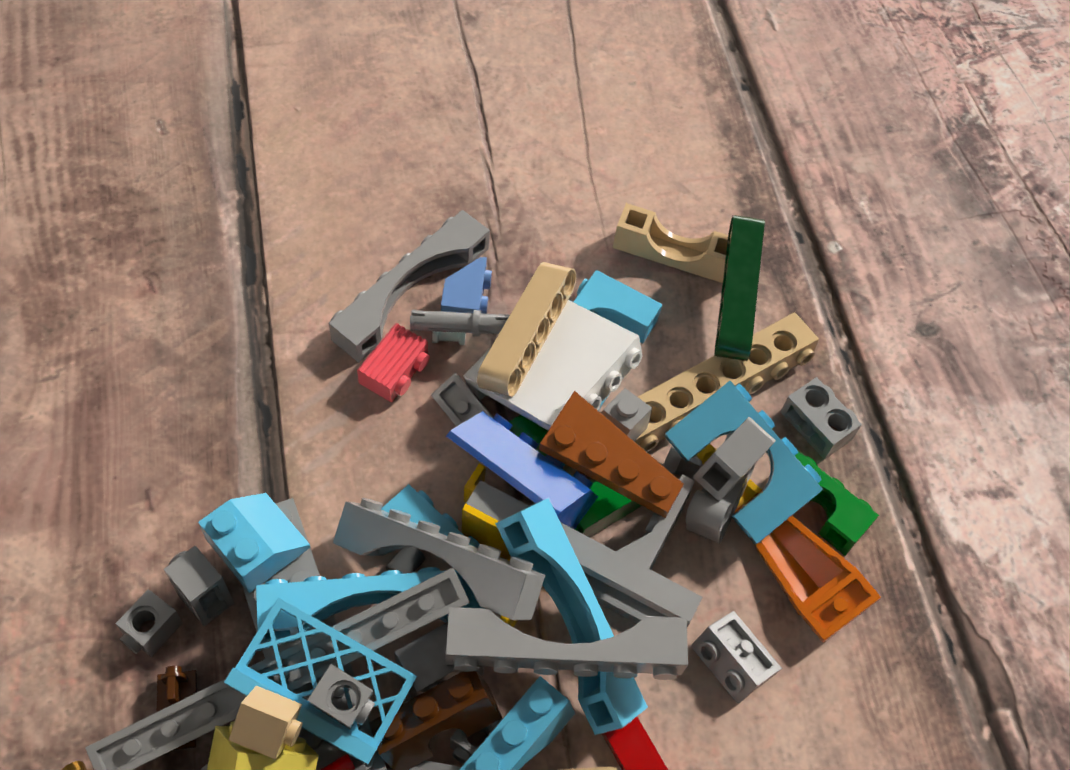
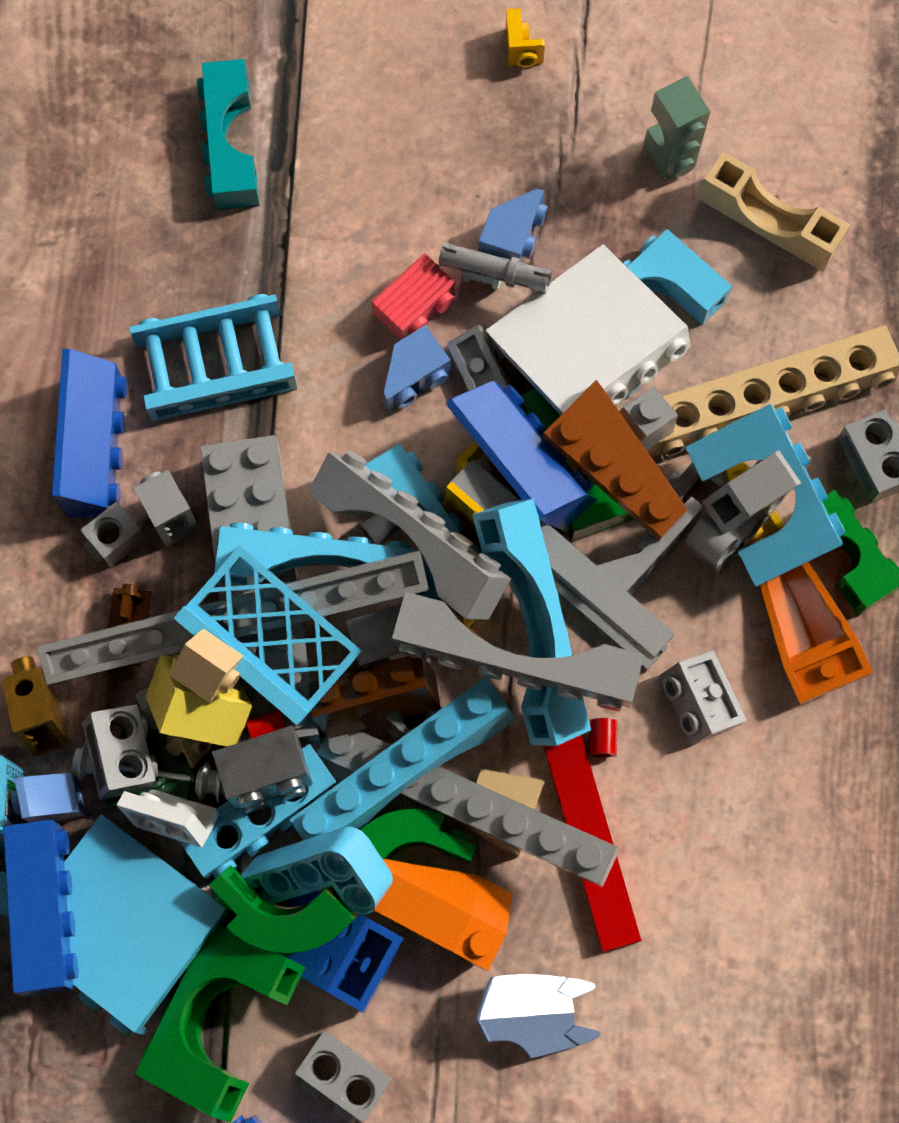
camera: 20 degrees right, 15 degrees up
(110, 535) = (88, 435): none -> slope
(212, 288) = (226, 96): none -> teal arch
(224, 476) = (203, 392): none -> medium azure fence
(253, 538) = (228, 472): medium azure slope -> none
(332, 681) = (270, 644): light grey brick -> none
(362, 323) = (510, 166): light grey arch -> none
(407, 418) = (414, 366): none -> medium blue slope
(438, 158) = (519, 48): none -> yellow bracket
(526, 329) = (566, 291): tan beam -> none
(590, 182) = (680, 128): none -> sand green arch
(658, 715) = (603, 738): none -> red hinge
(739, 288) = (825, 285): dark green beam -> none

